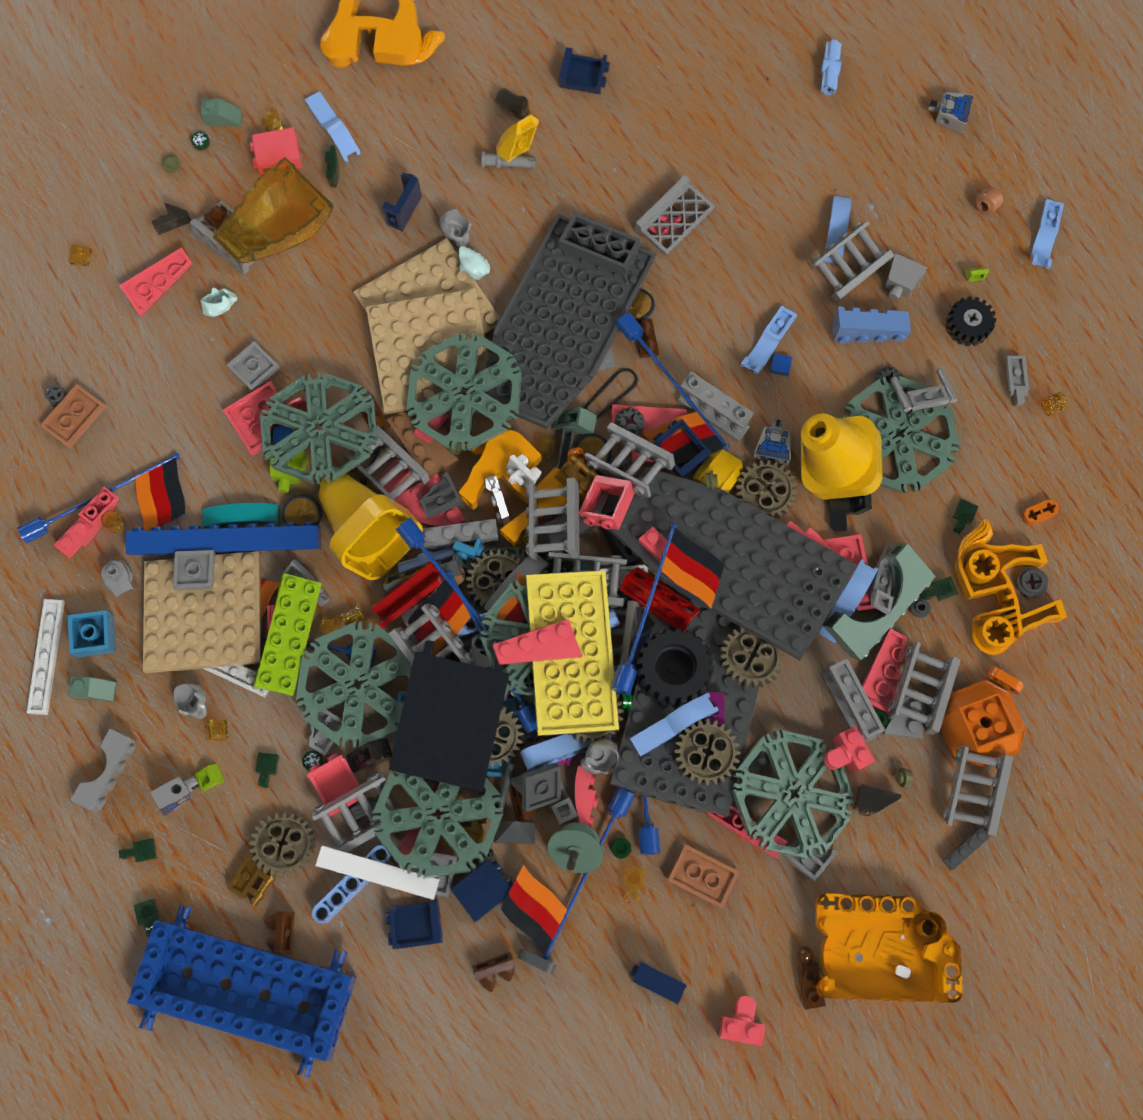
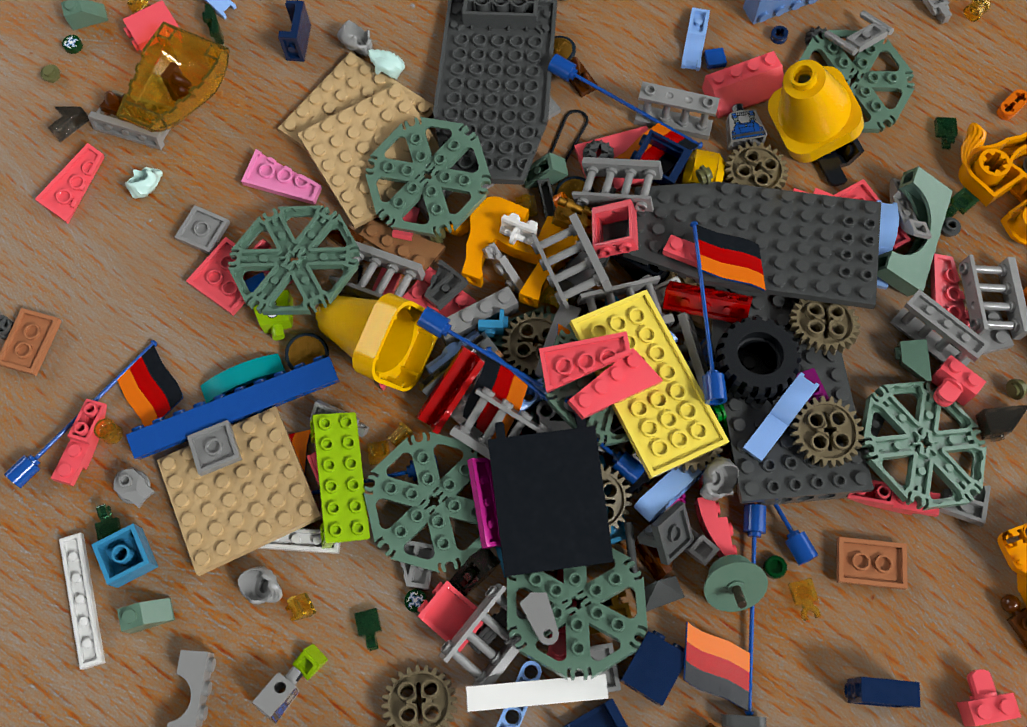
camera: 20 degrees left, 5 degrees down
(86, 603) = (108, 524): none -> clear green plate
(276, 221) = (175, 82): none -> reddish brown tile
(334, 340) = (272, 177): none -> bright pink wing
(395, 701) = (484, 501): none -> dark pink plate
(402, 813) = (540, 616): none -> light grey piece
(515, 611) = (577, 359): none -> coral wing
(793, 400) = (745, 83): none -> coral slope
(825, 716) = (914, 358): none -> sand green slope
(847, 359) = (780, 30): none -> dark blue bush

